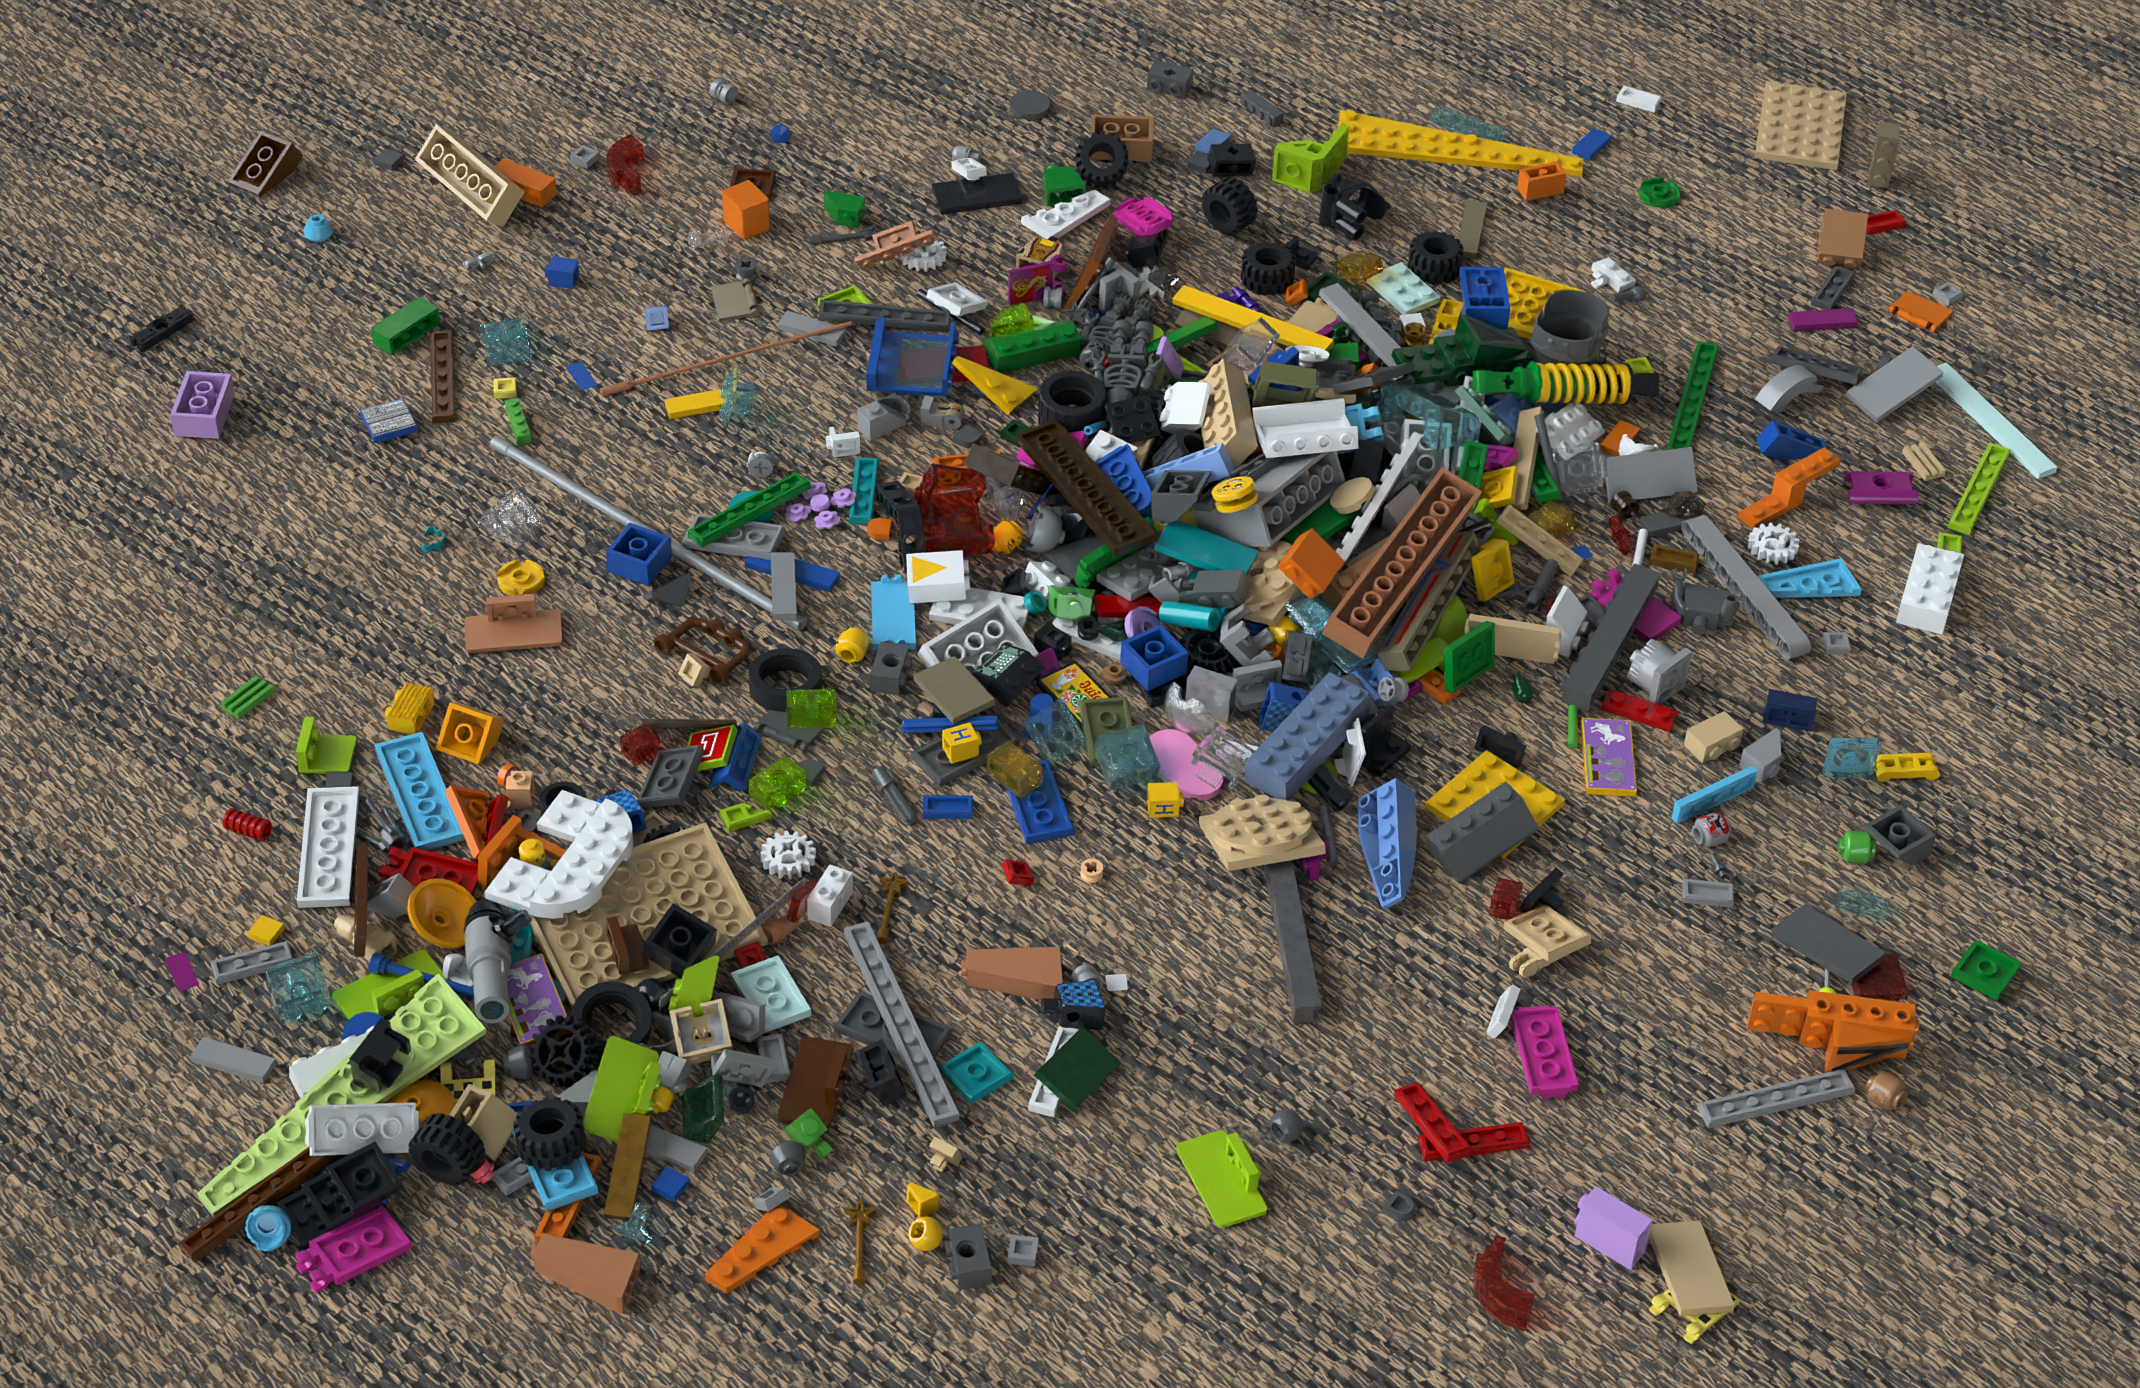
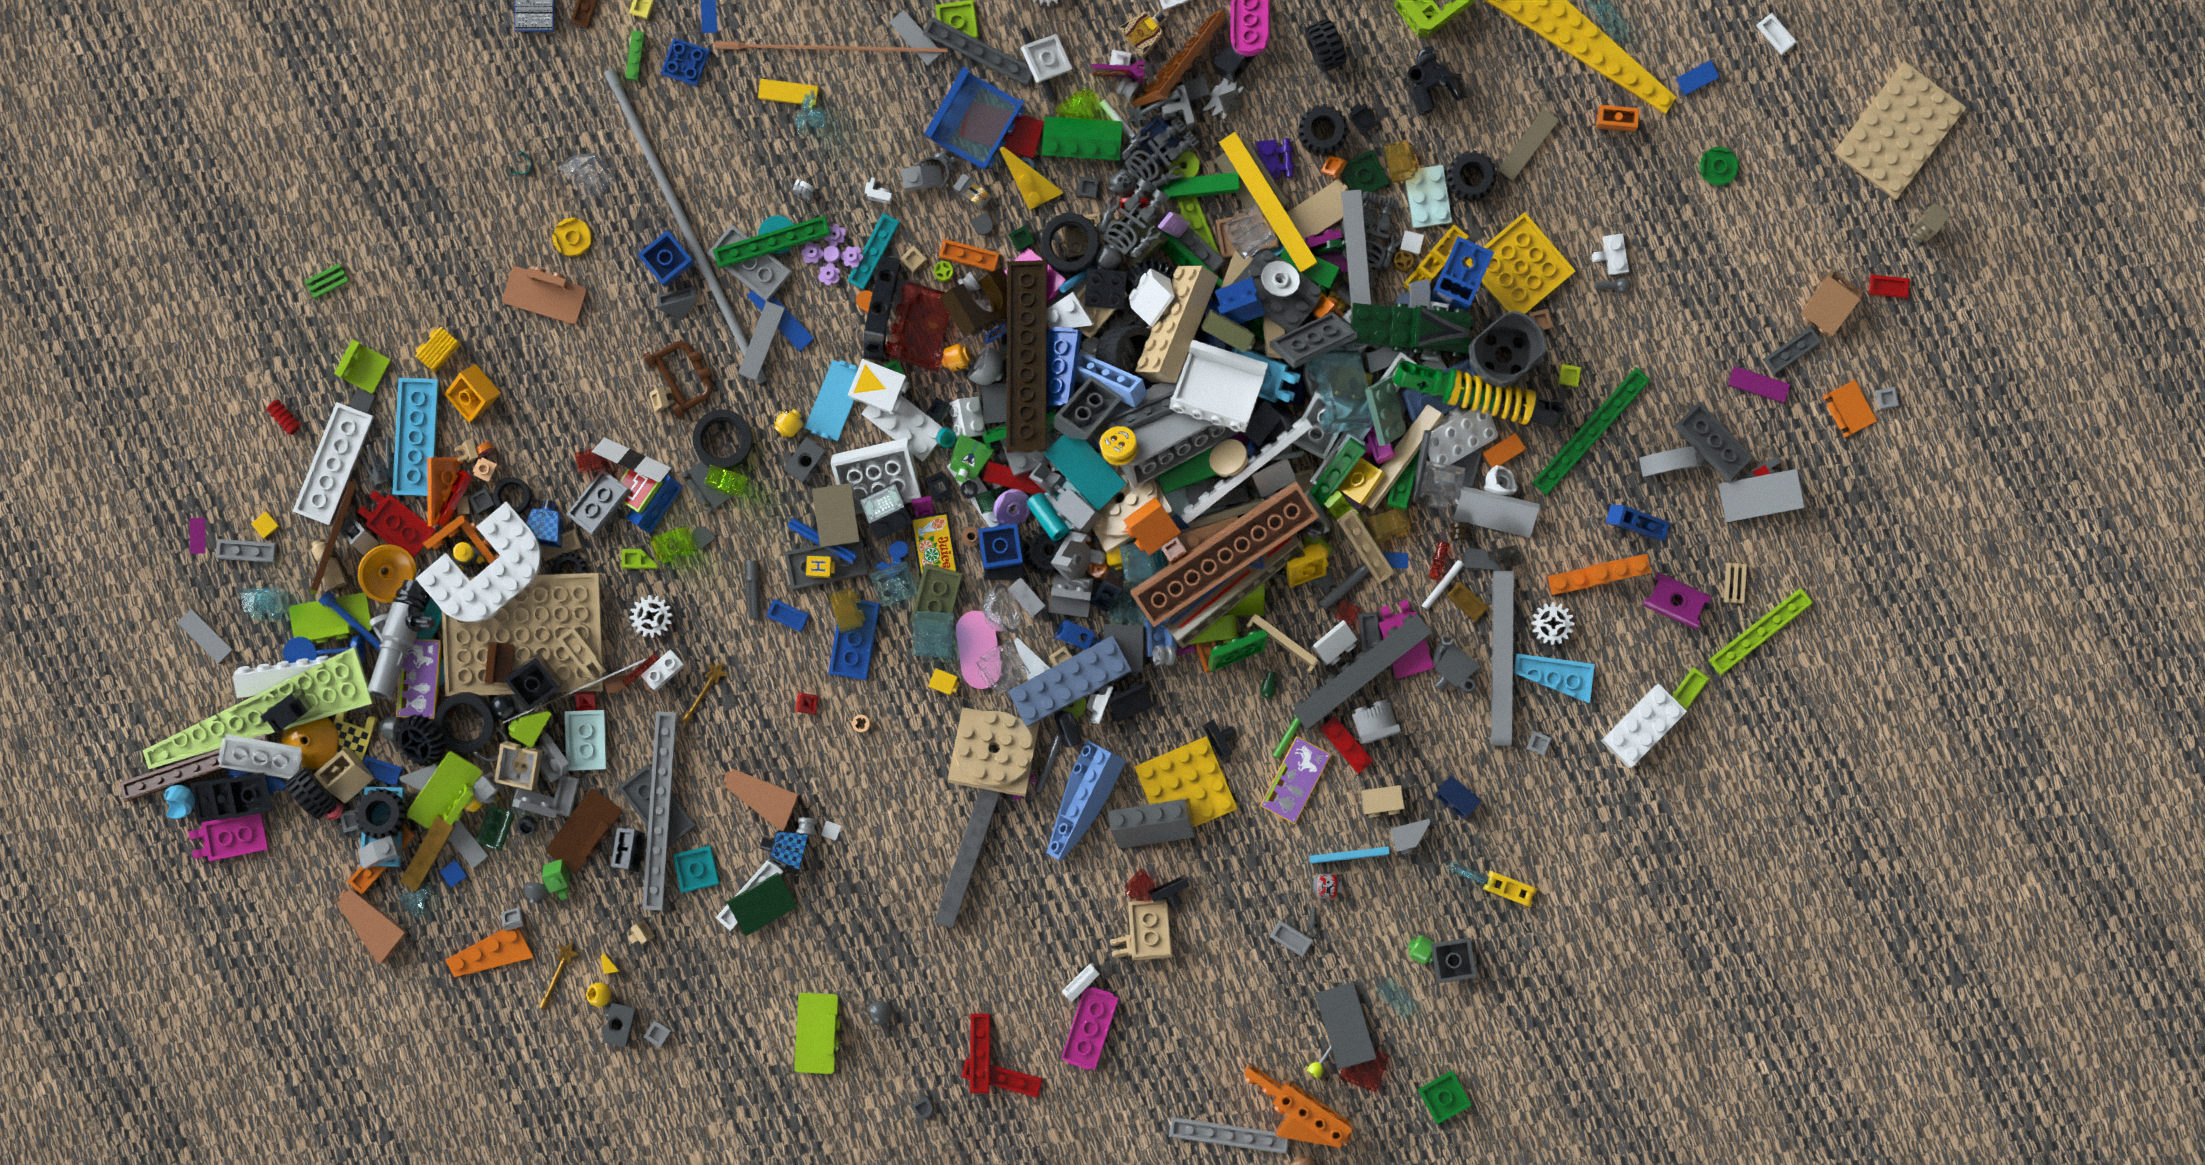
camera: 30 degrees right, 40 degrees up
(490, 780) = (469, 451): none -> tan tile
(566, 1172) = (379, 852): none -> light grey slope
(575, 413) = (685, 62): none -> blue tile
(723, 901) = (580, 652): none -> tan hinge
(1347, 576) = (1174, 550): none -> tile
(1995, 423) = (1821, 561): light aqua tile -> none

